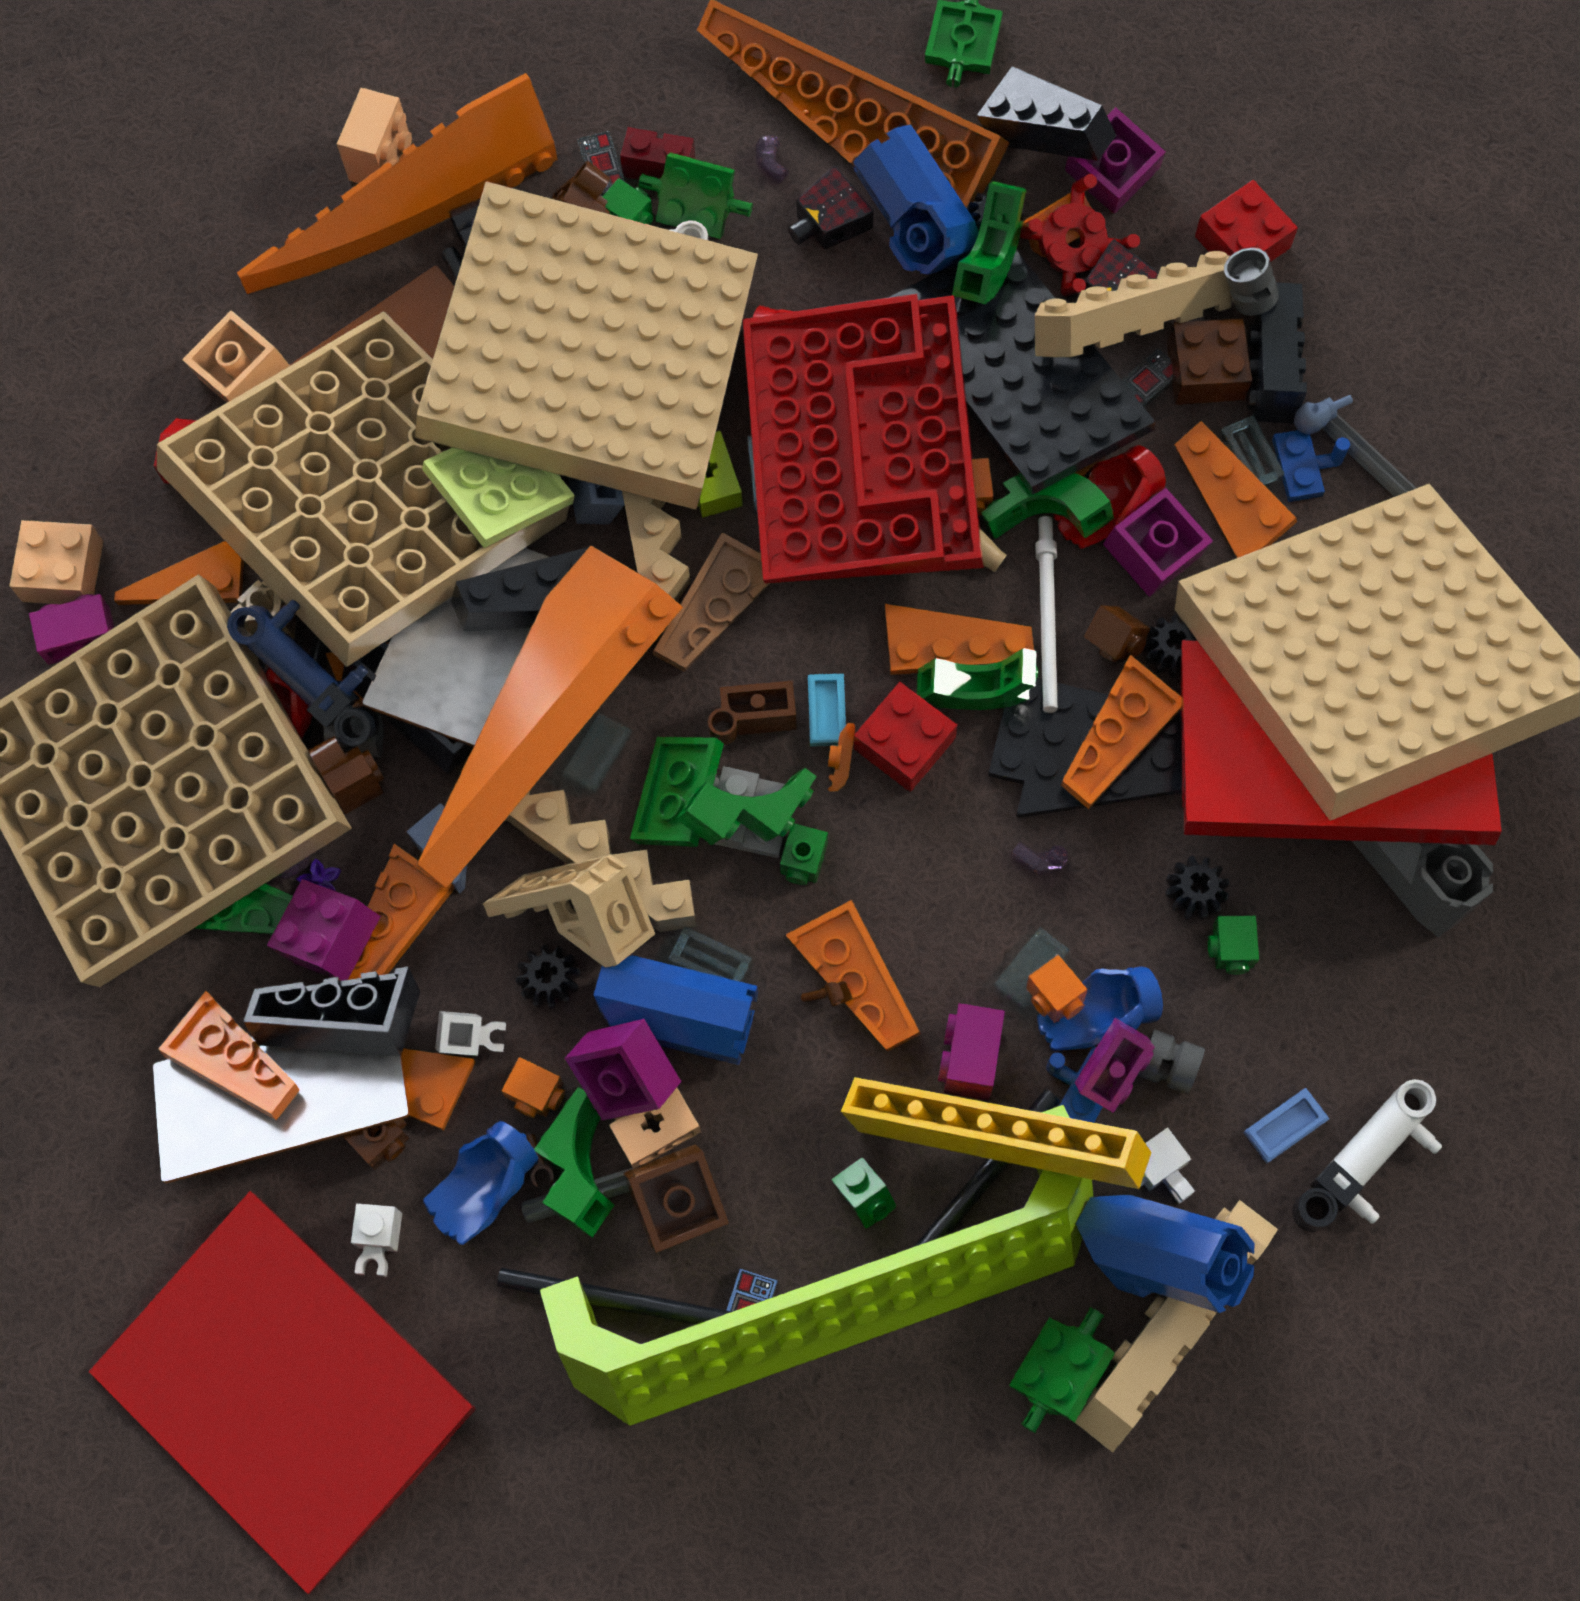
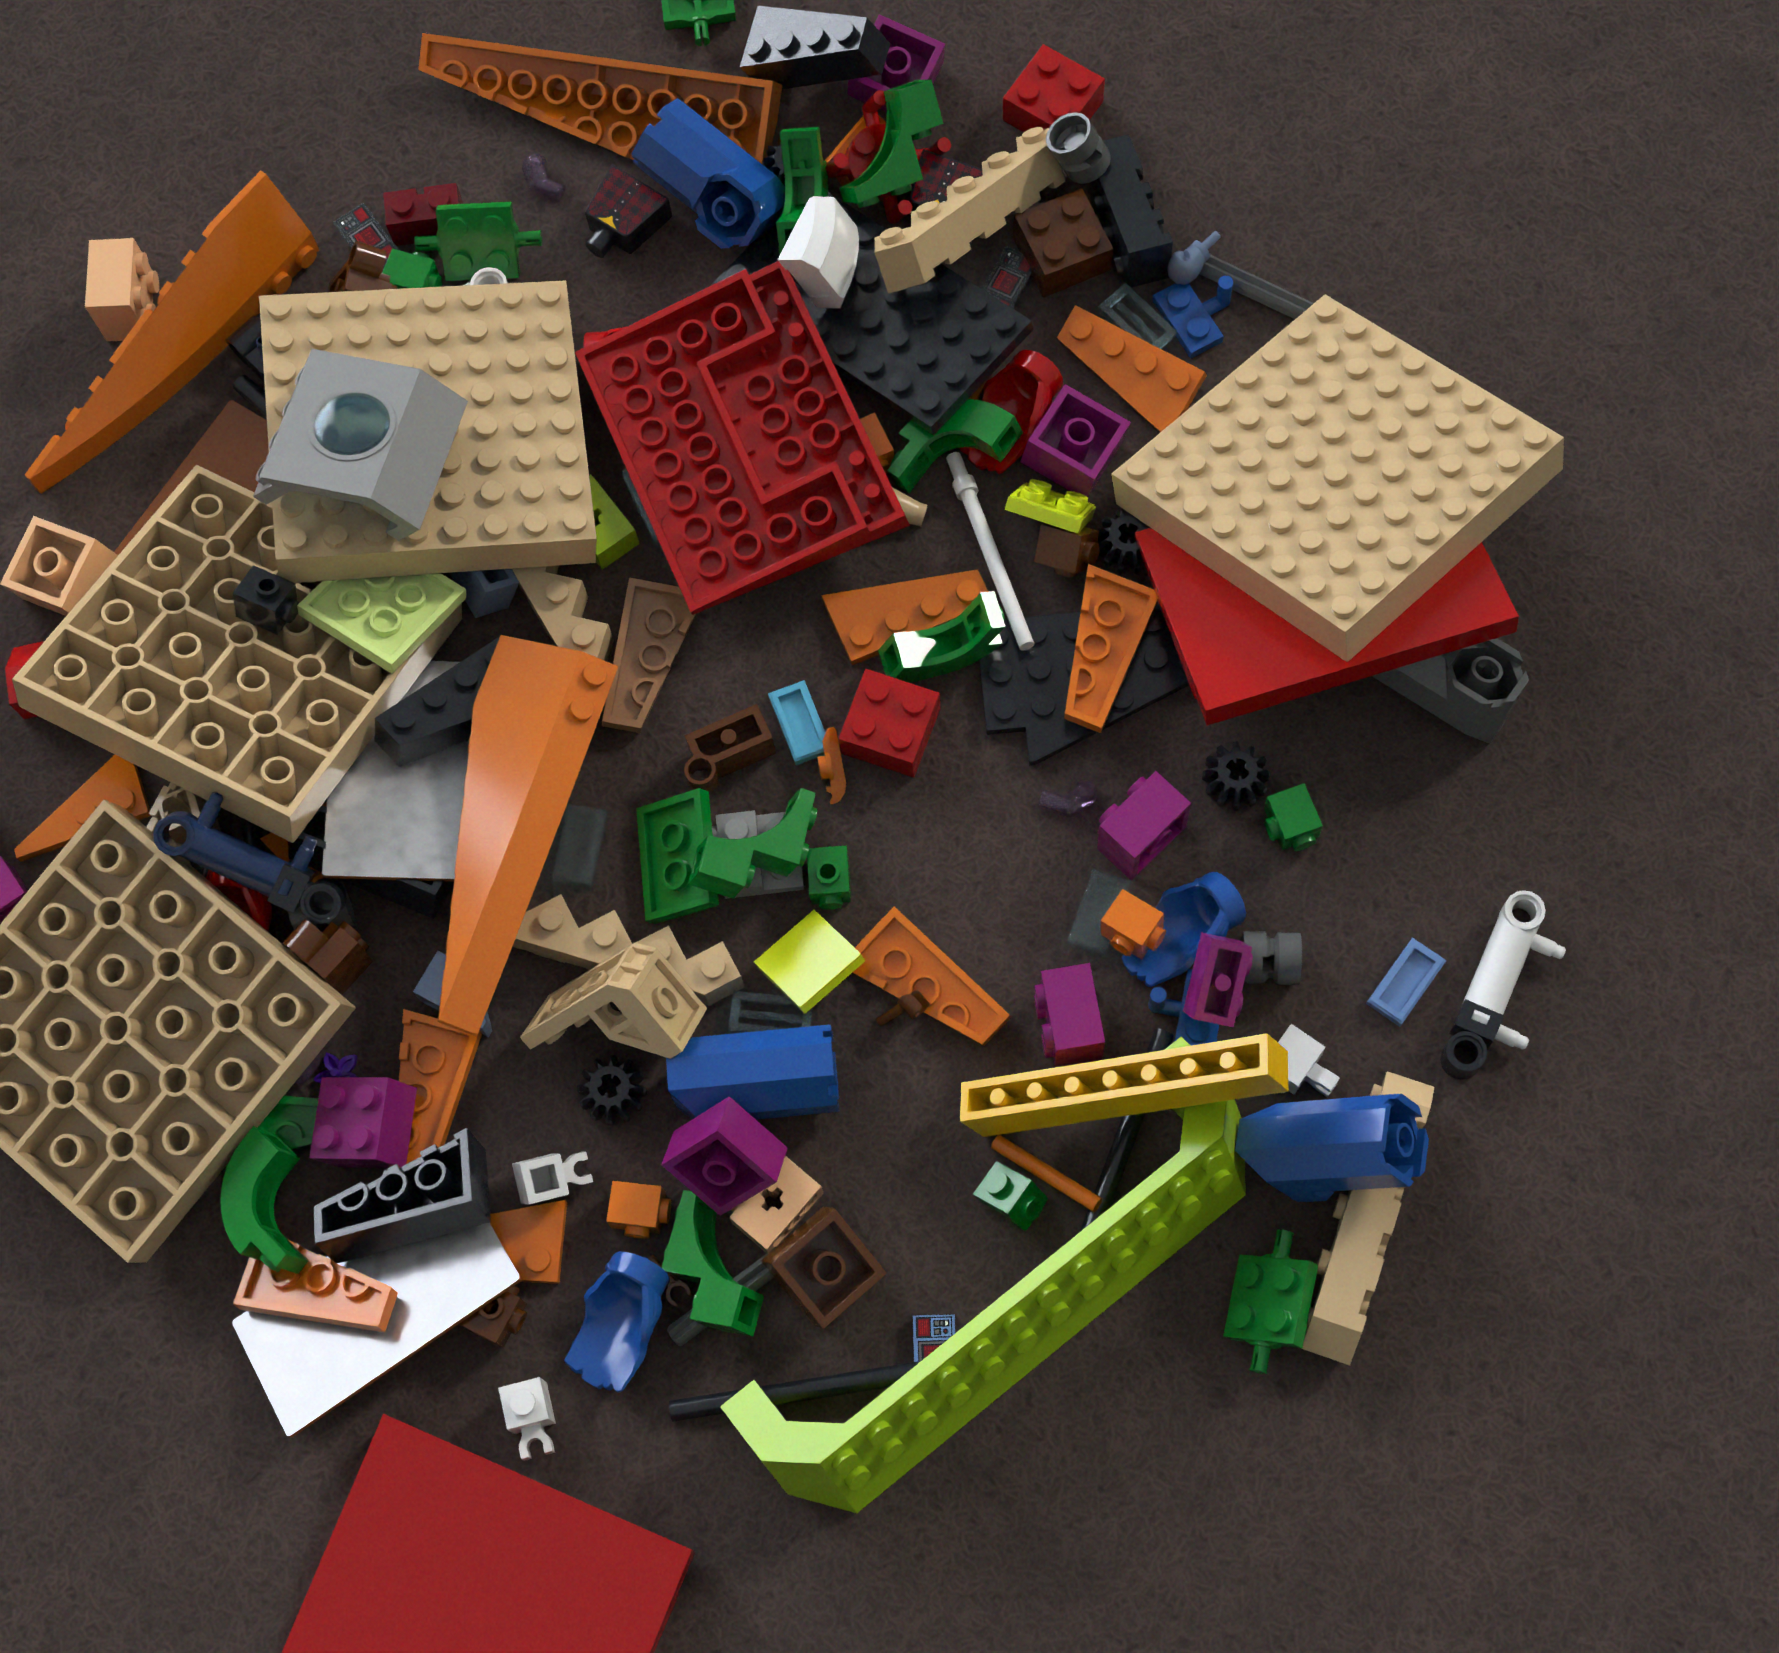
camera: 15 degrees left, 0 degrees up
(202, 963) = (249, 1198): none -> green arch
(398, 447) = (265, 600): none -> black brick
(529, 333) = (363, 437): none -> light grey panel
(759, 923) = (809, 961): none -> neon yellow tile
(902, 1184) = (1046, 1173): none -> orange bar
(990, 300) = (822, 251): none -> white slope
(1097, 903) = (1142, 824): none -> magenta brick
(1110, 206) = (910, 116): none -> green arch
(1116, 594) = (1050, 507): none -> neon yellow tile

